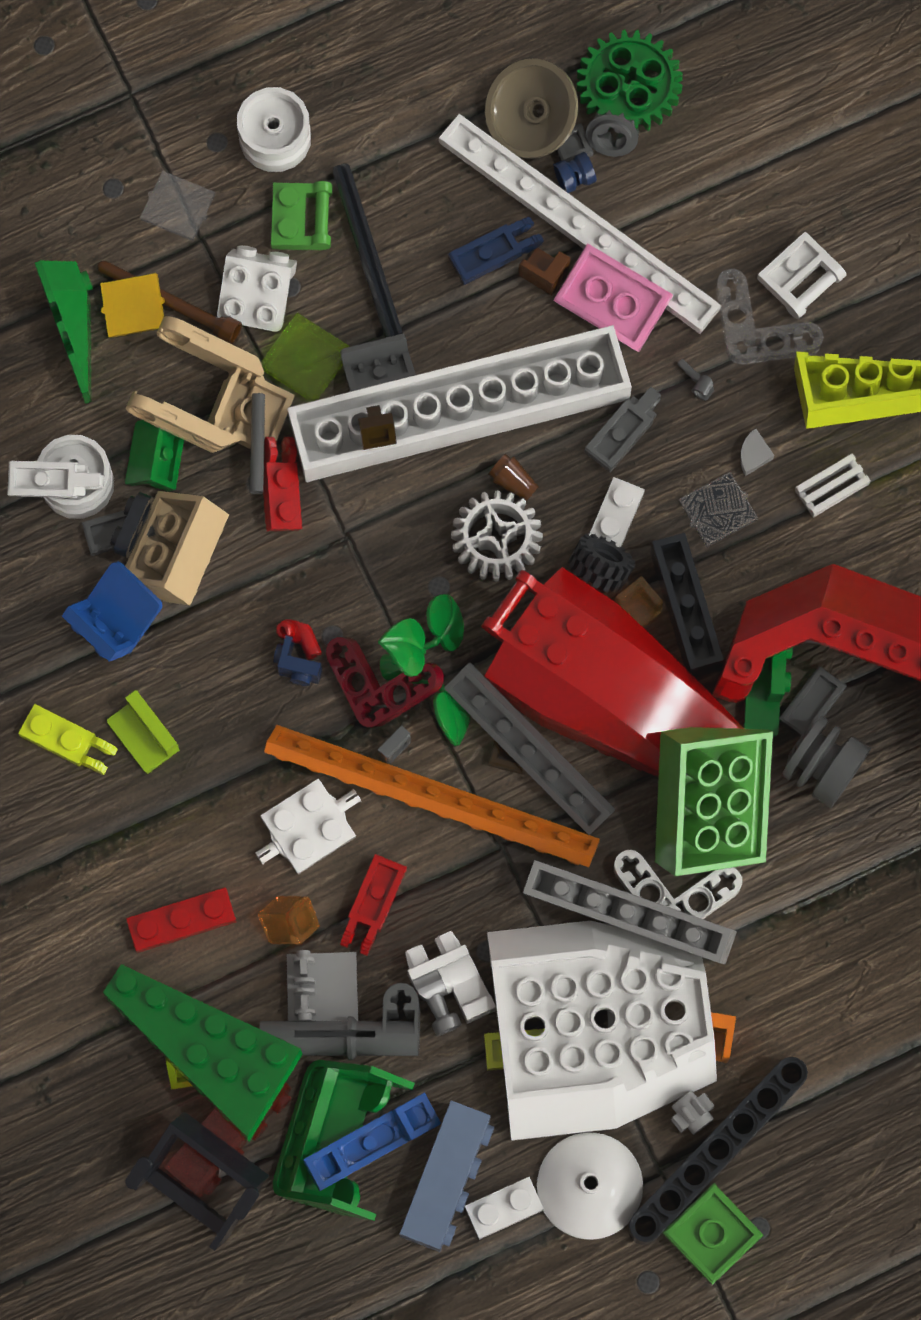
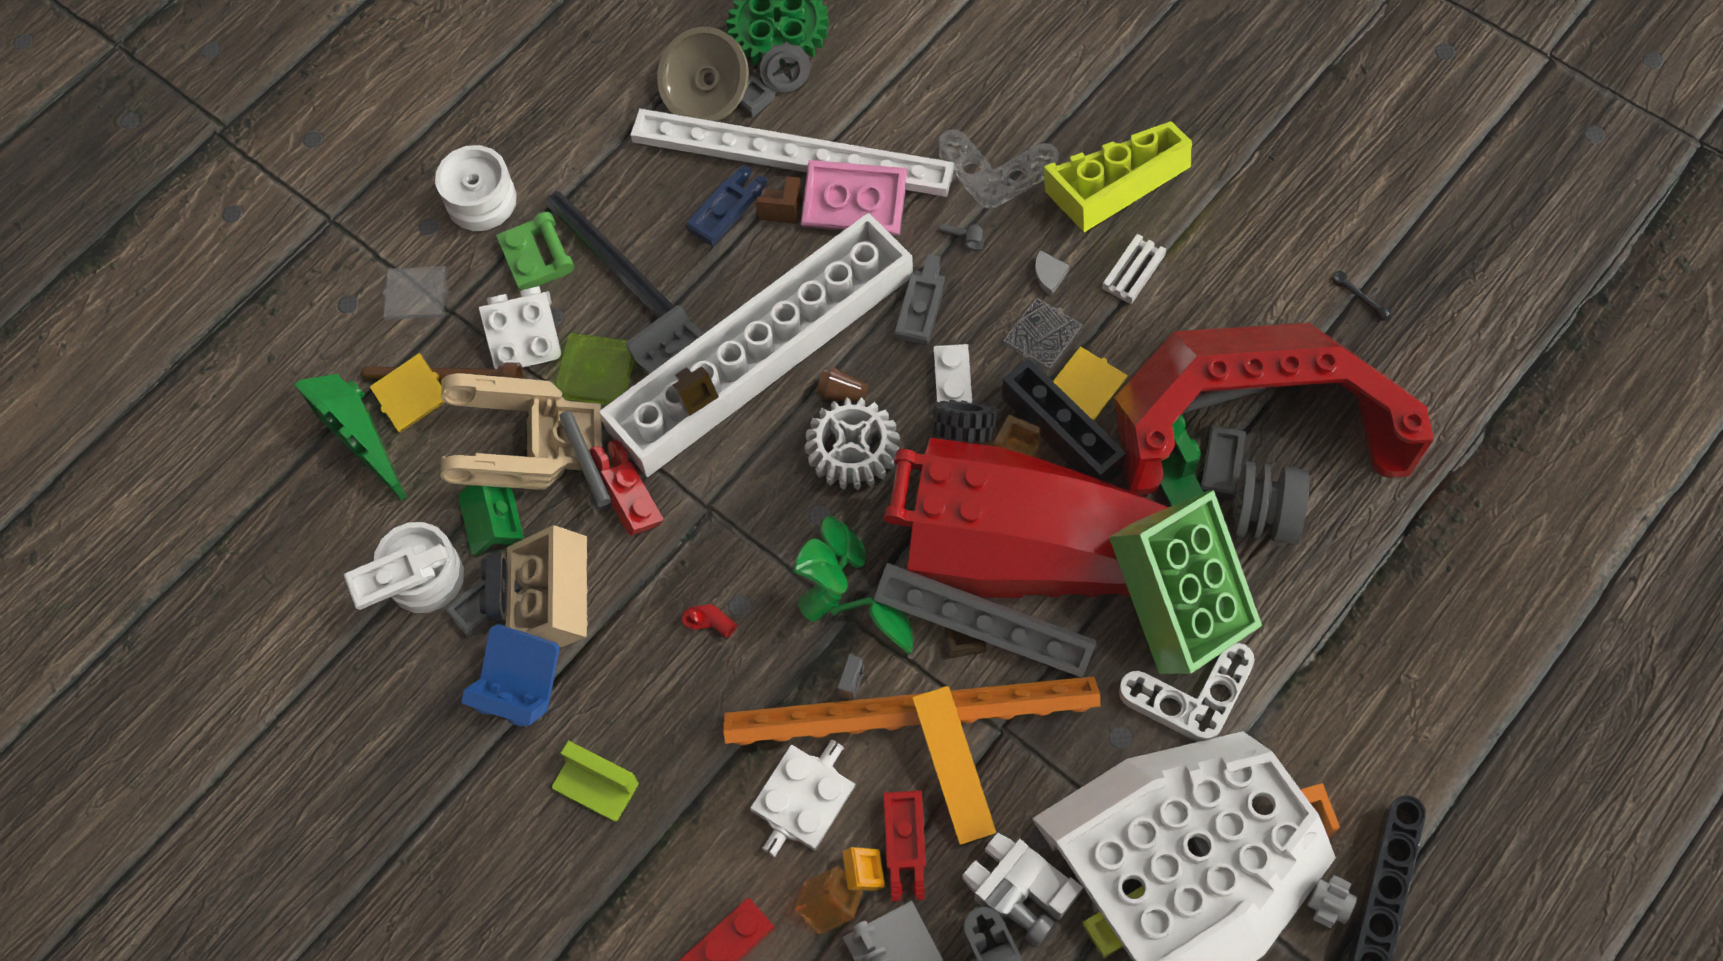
camera: 20 degrees left, 10 degrees down
(64, 738) = (517, 825): neon yellow hinge -> none
(297, 669) = (721, 649): dark blue bracket -> none
(329, 908) = (863, 869): none -> light orange tile
(372, 693) = (805, 639): dark red beam -> none
(443, 858) = (954, 765): none -> light orange tile
(575, 172) = (767, 112): dark blue wheel -> none
(630, 912) = (1167, 728): light grey brick -> none
(732, 575) = (1090, 381): none -> yellow piece
(796, 265) = (1000, 107): white plate -> none

